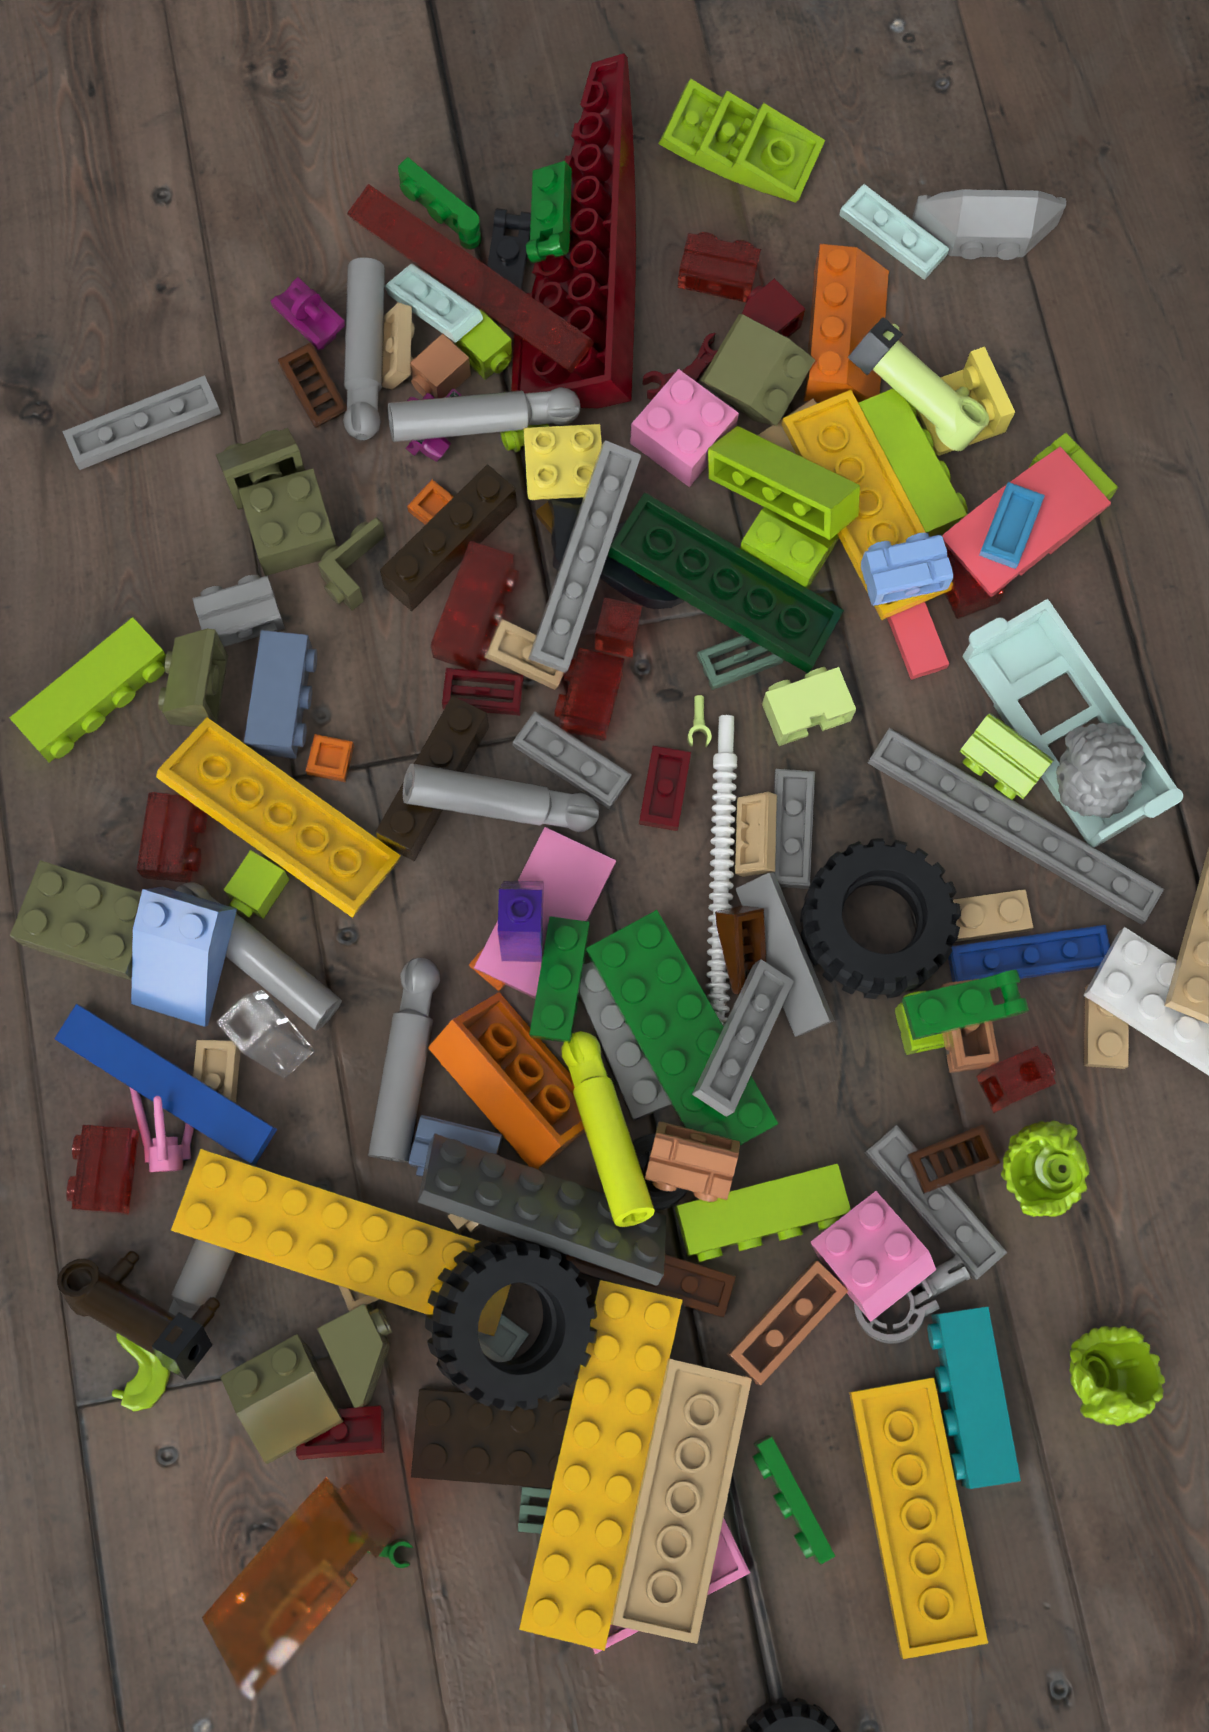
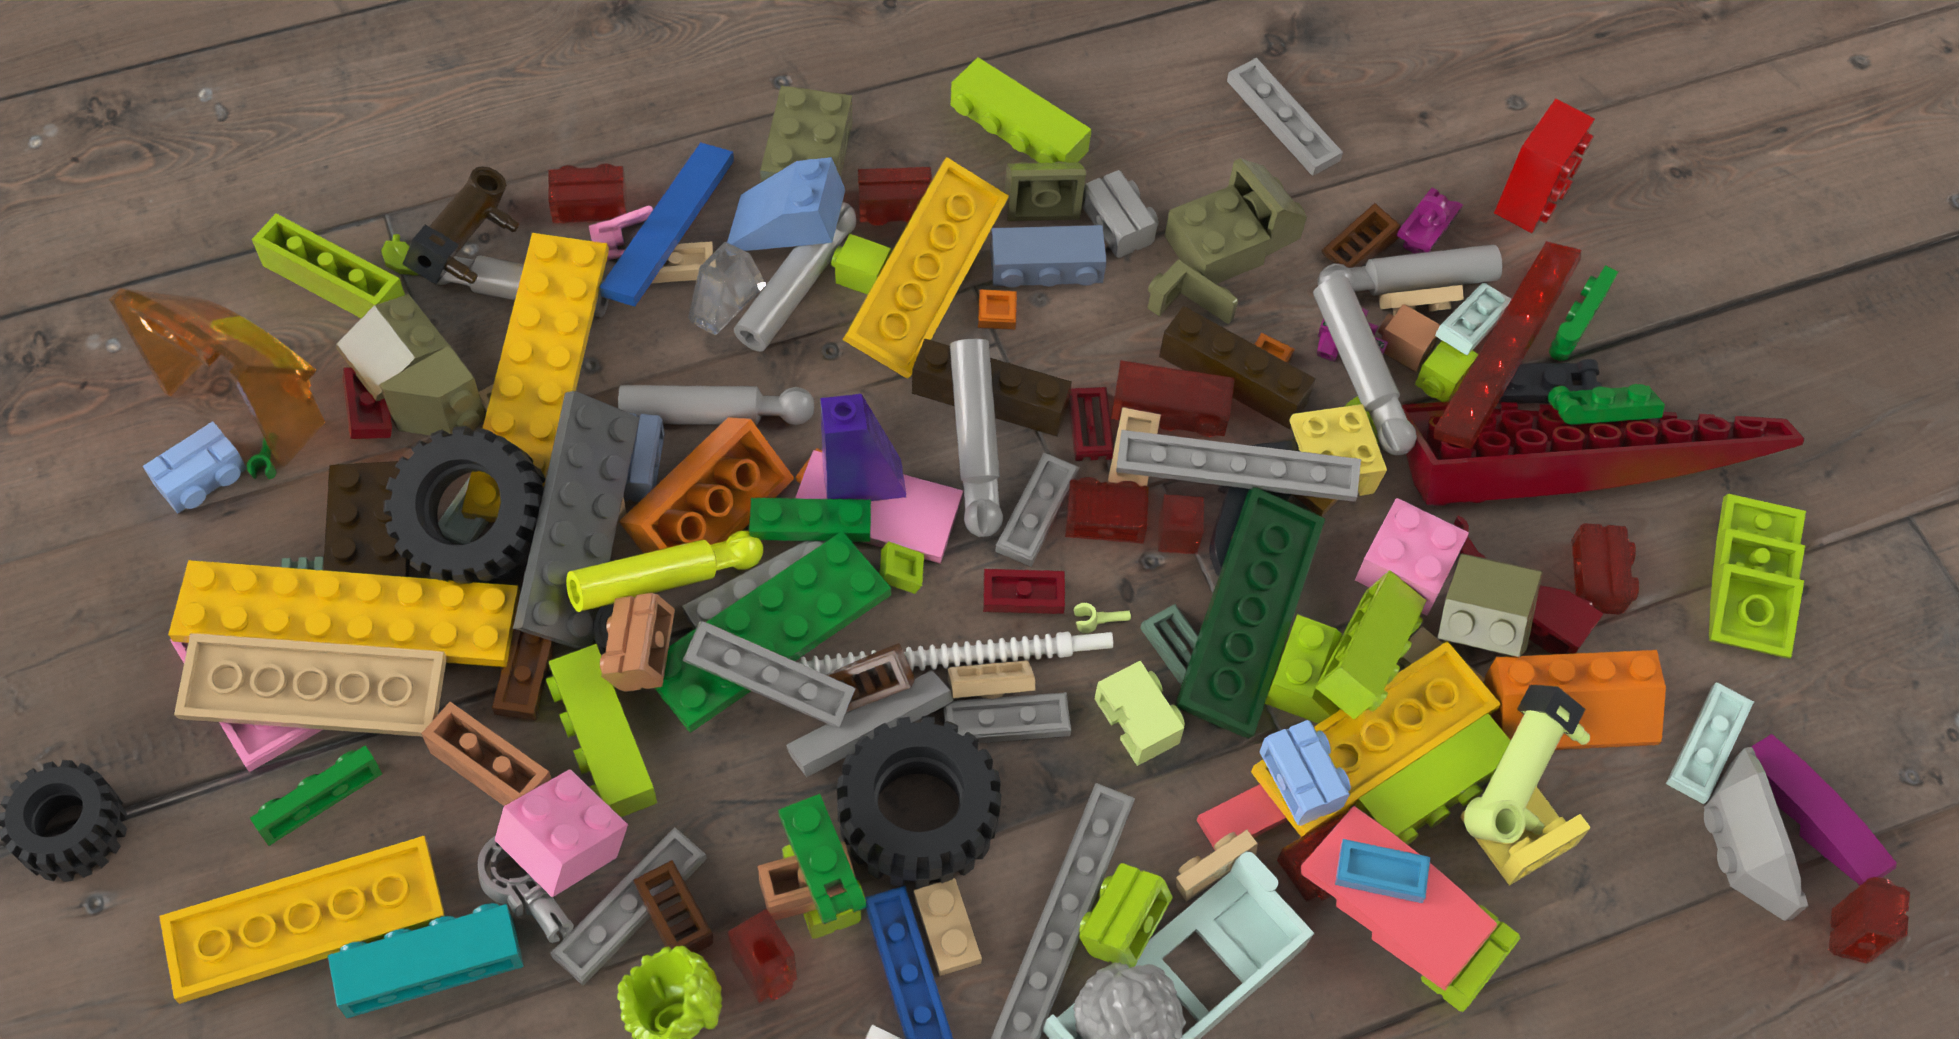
camera: 80 degrees right, 15 degrees down
(163, 1469) = (324, 267): none -> lime brick
(279, 183) = (1545, 165): none -> red brick
(394, 1626) = (195, 468): none -> light blue brick
(623, 899) = (902, 567): none -> lime plate
(972, 681) = (1201, 873): none -> tan plate
(977, 162) = (1823, 815): none -> magenta slope
(1082, 155) = (1869, 920): none -> clear red brick

